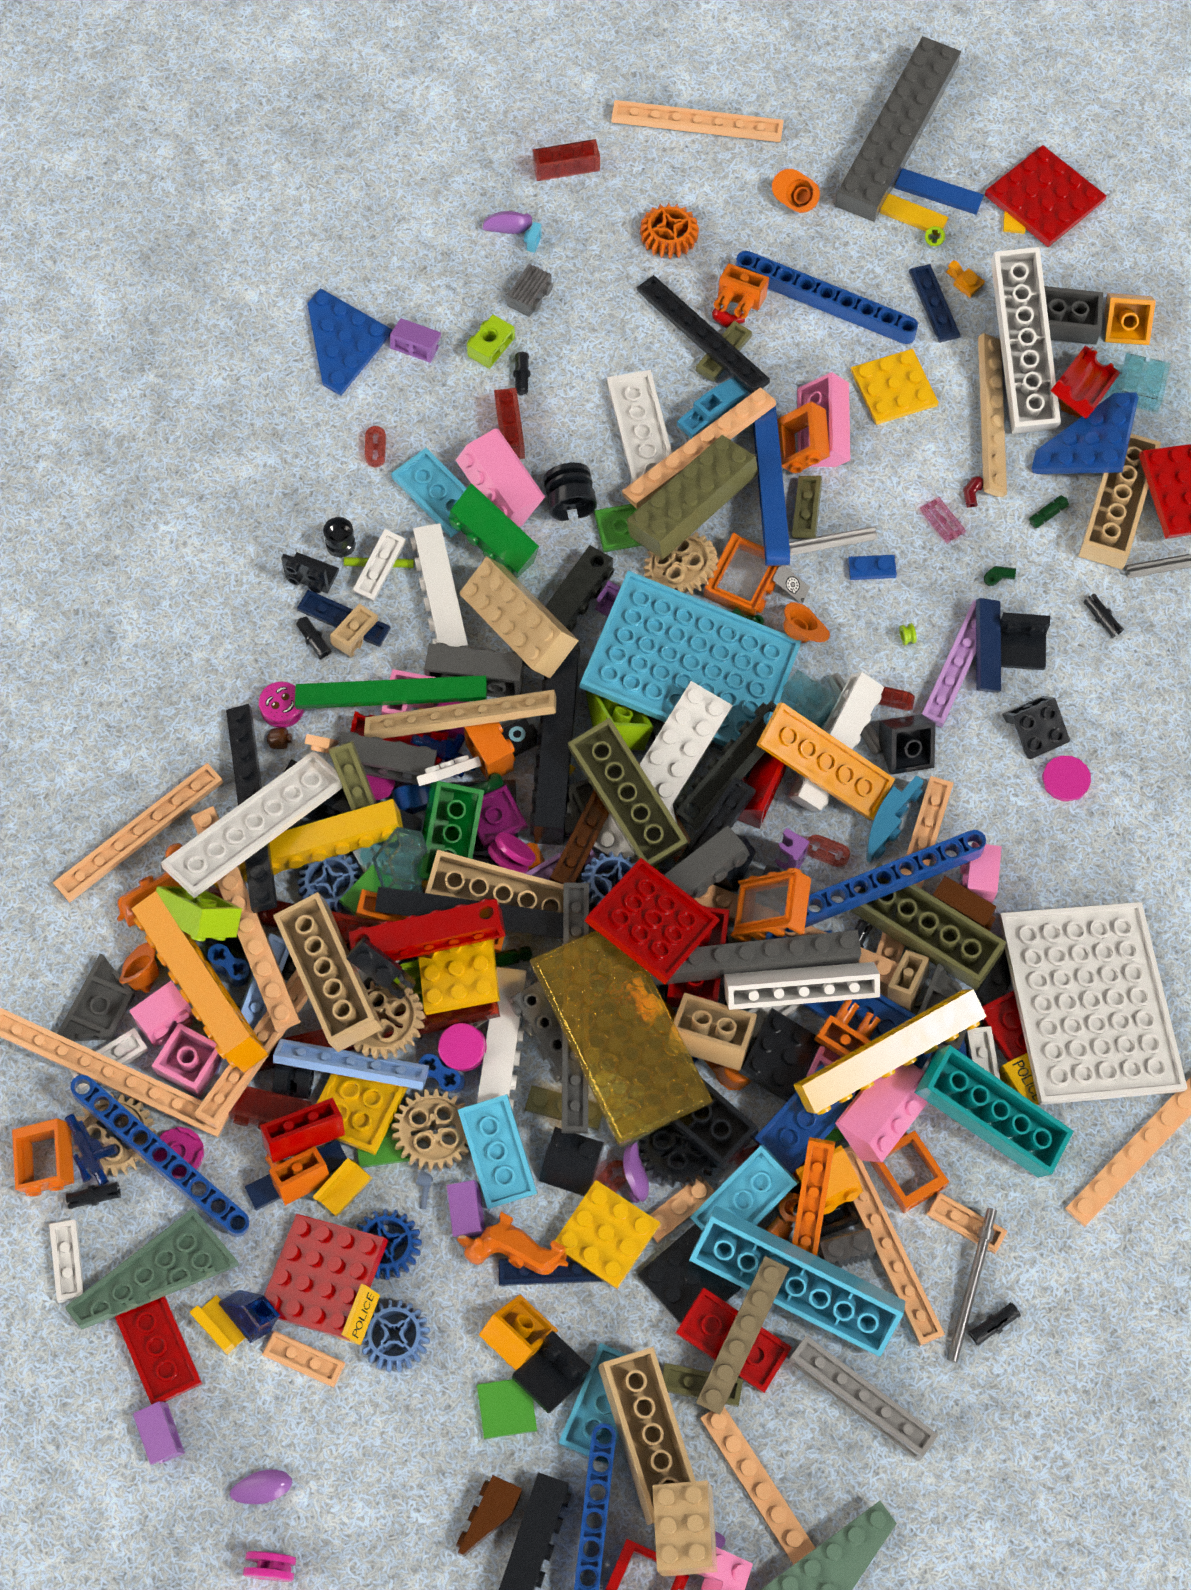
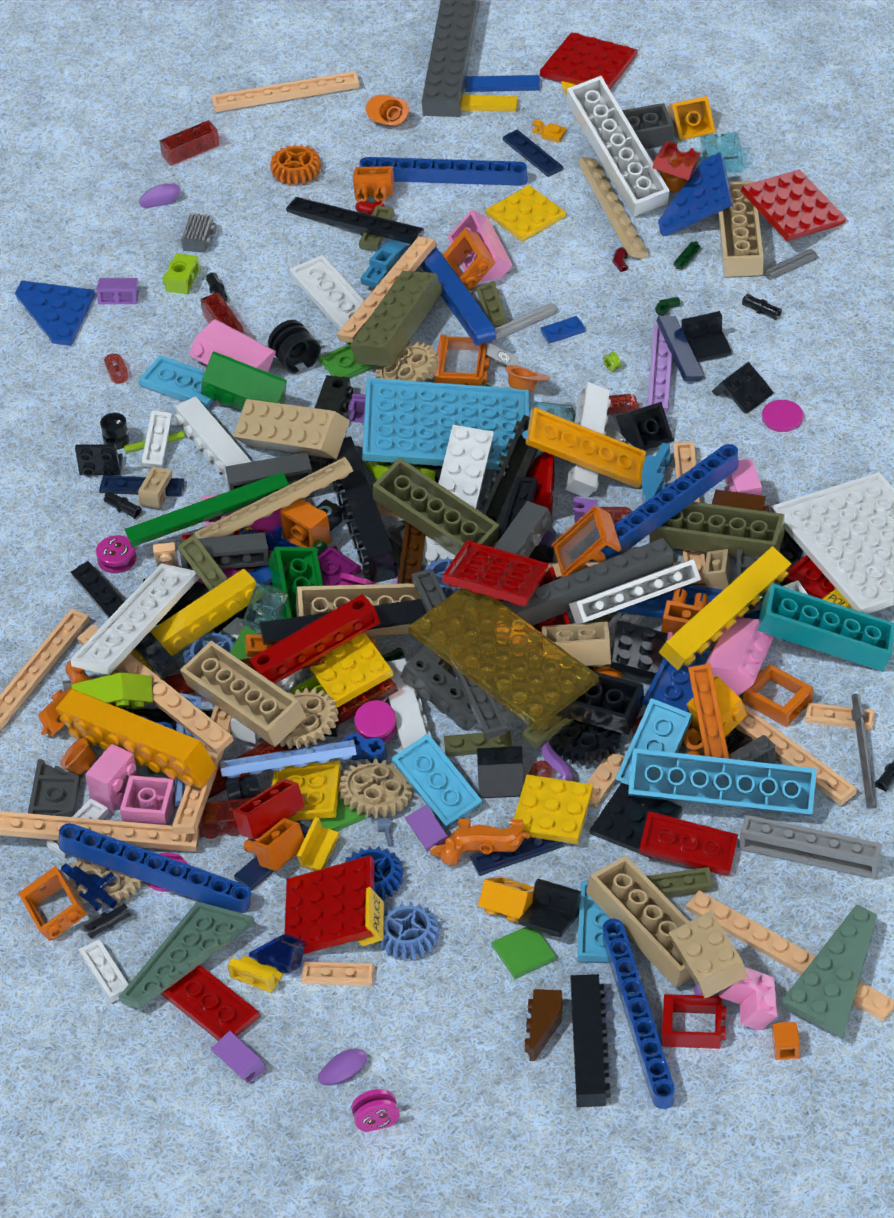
camera: 15 degrees left, 20 degrees down
(279, 738) = (123, 579): reddish brown piece -> none
(380, 967) = (284, 672): black hinge -> none
(448, 769) = (280, 539): white plate -> none
(533, 236) = (184, 198): medium azure plate -> none
(742, 1335) = (694, 828): dark tan plate -> none
(930, 231) = (518, 111): lime bush -> none
(953, 535) = (603, 287): clear pink tile -> none

